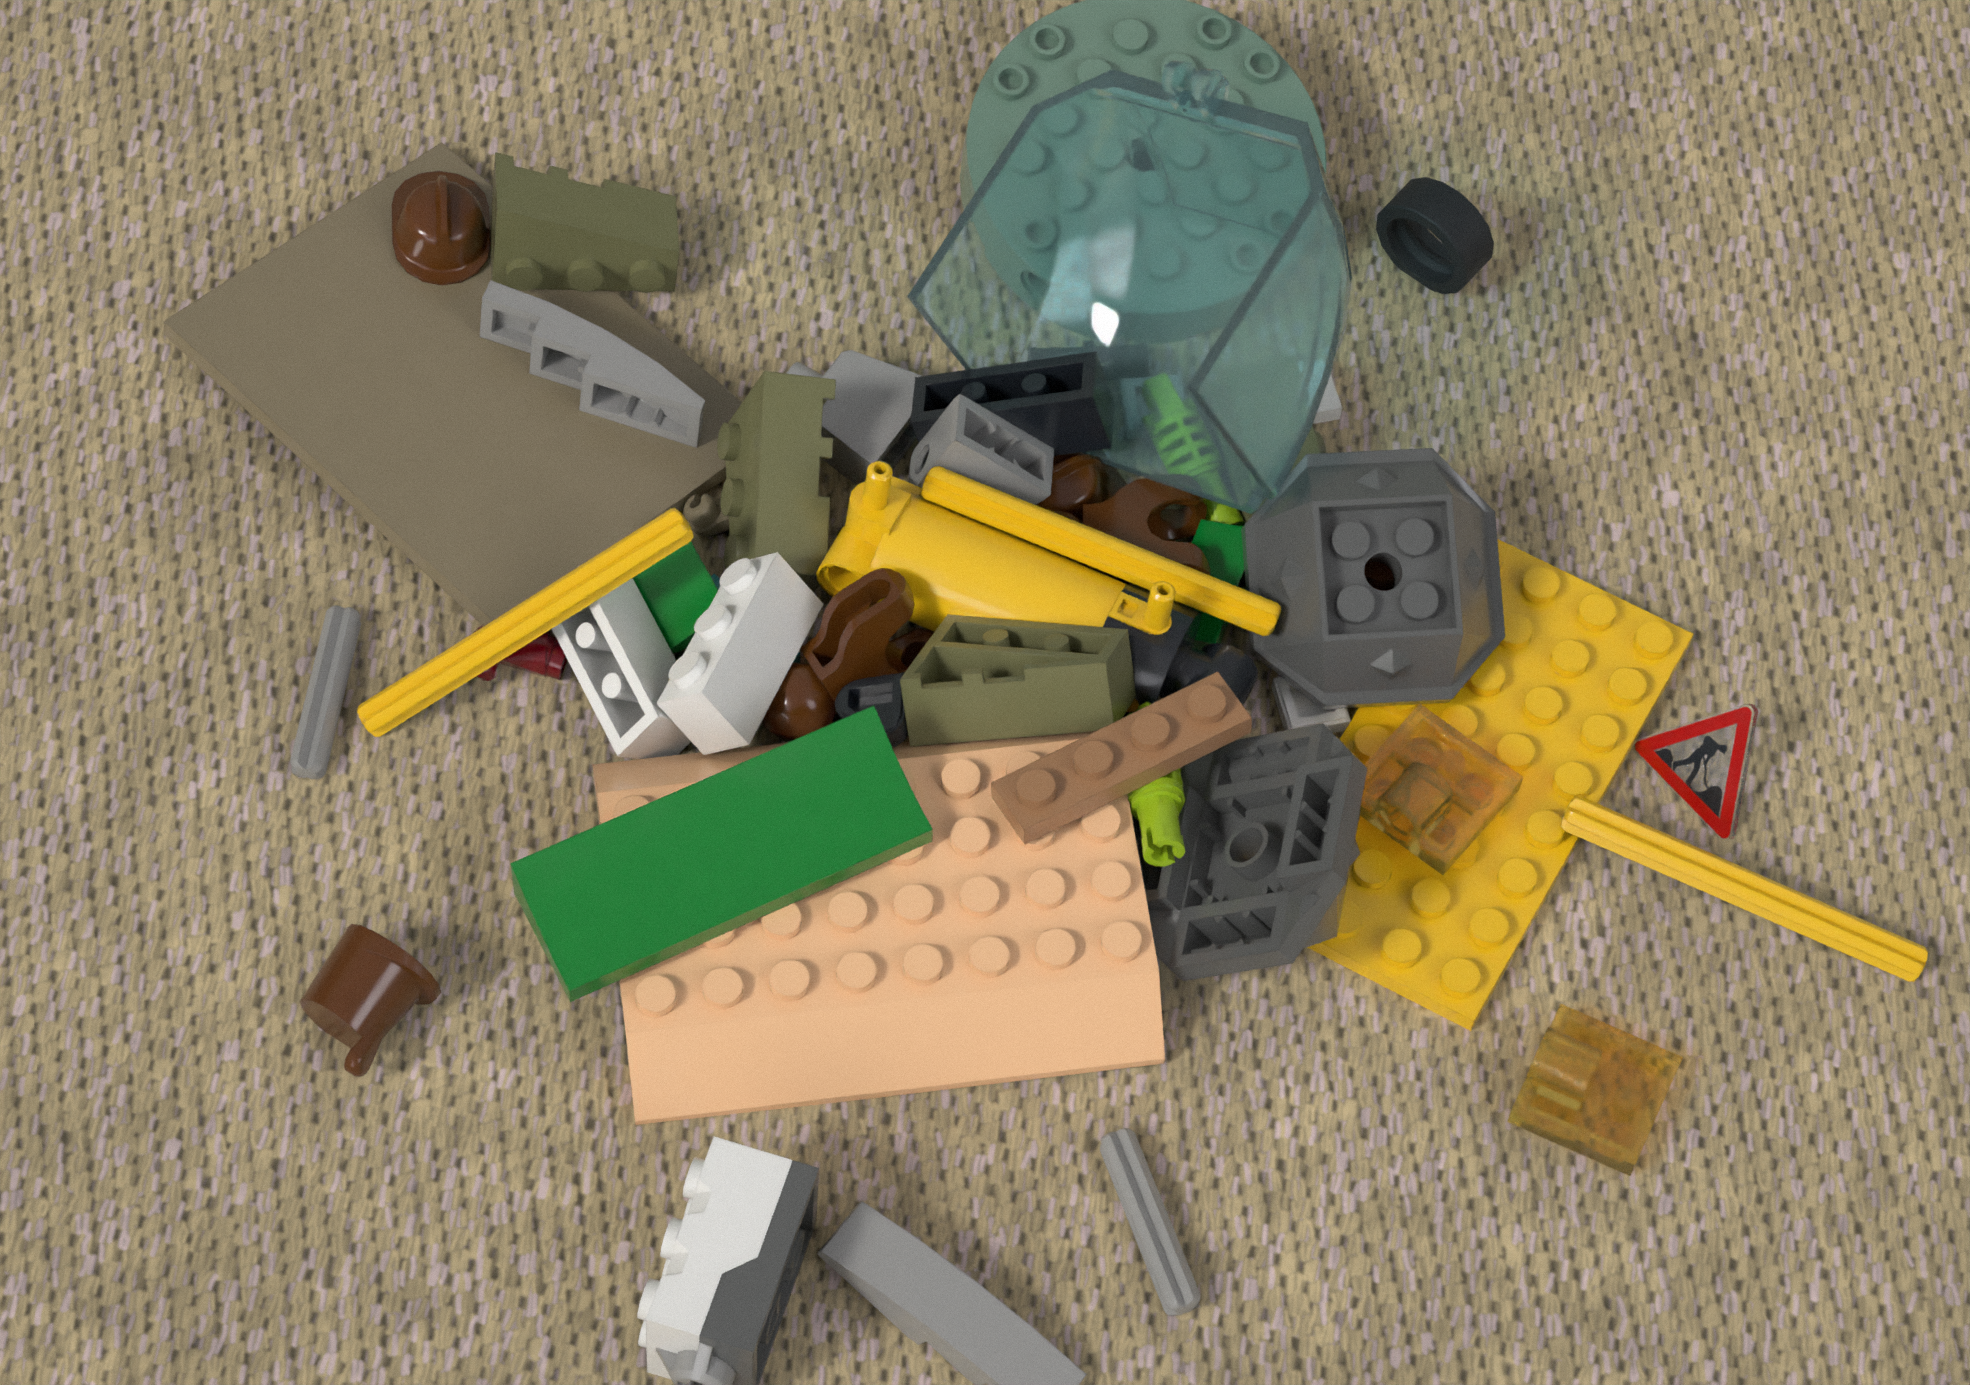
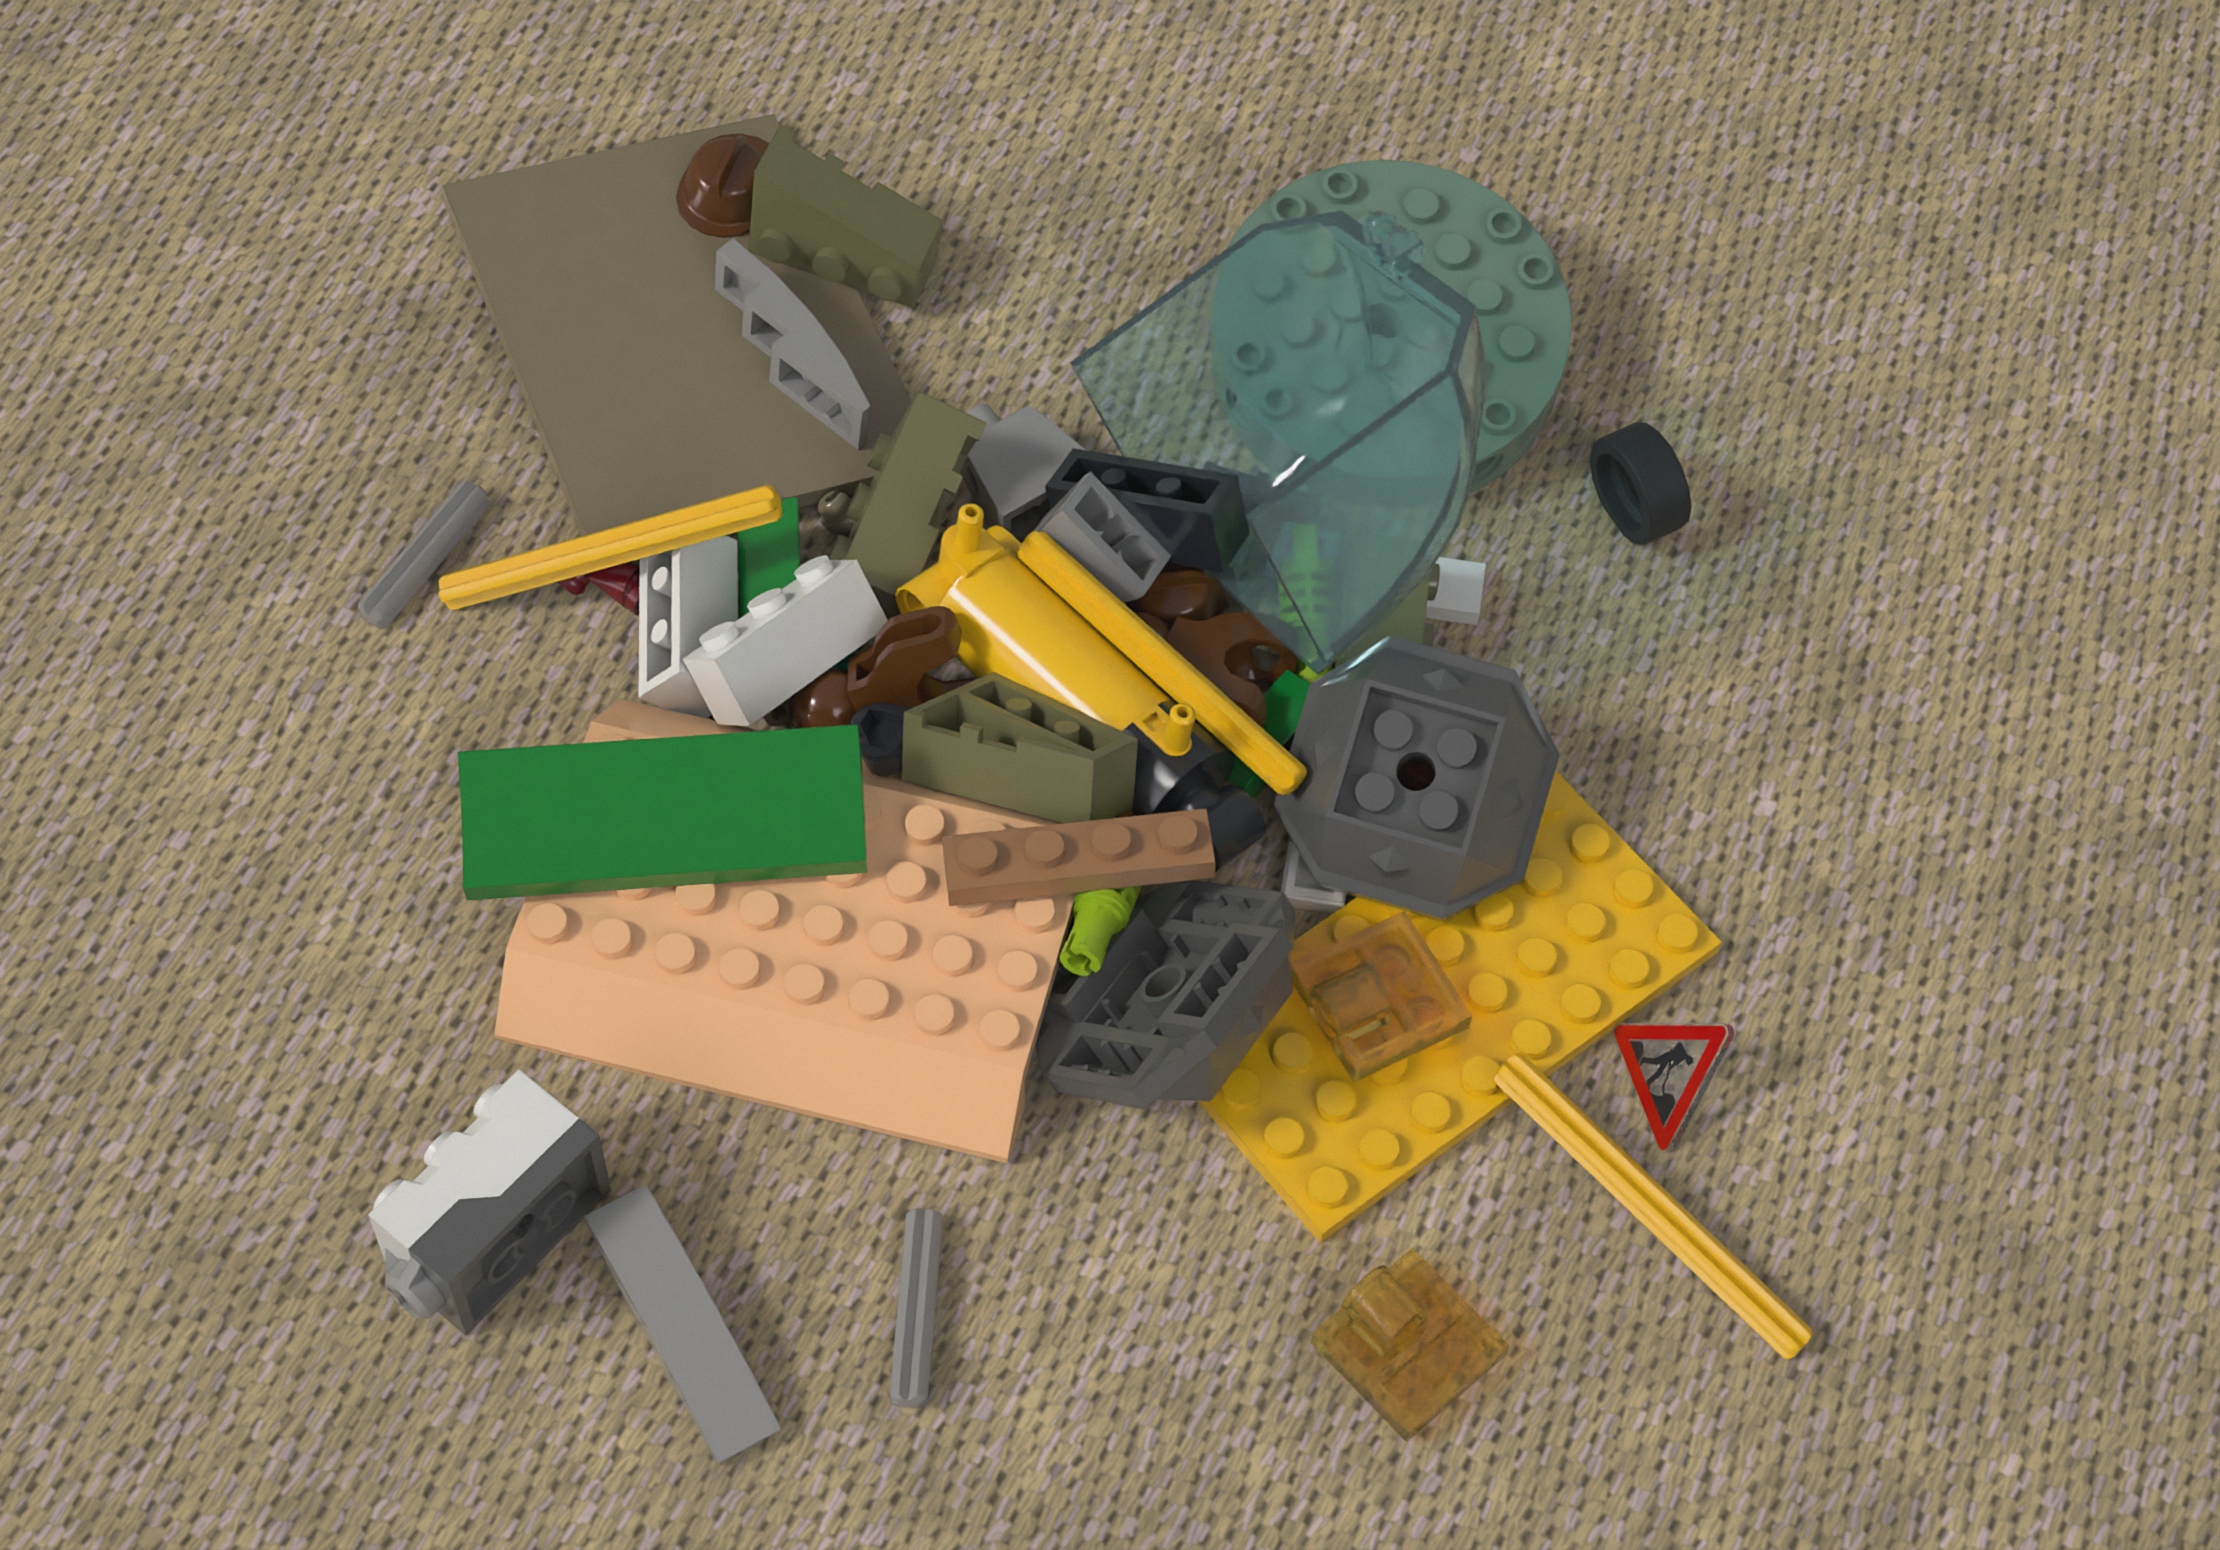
camera: 25 degrees right, 0 degrees up
(365, 993) = (305, 831): reddish brown hat -> none

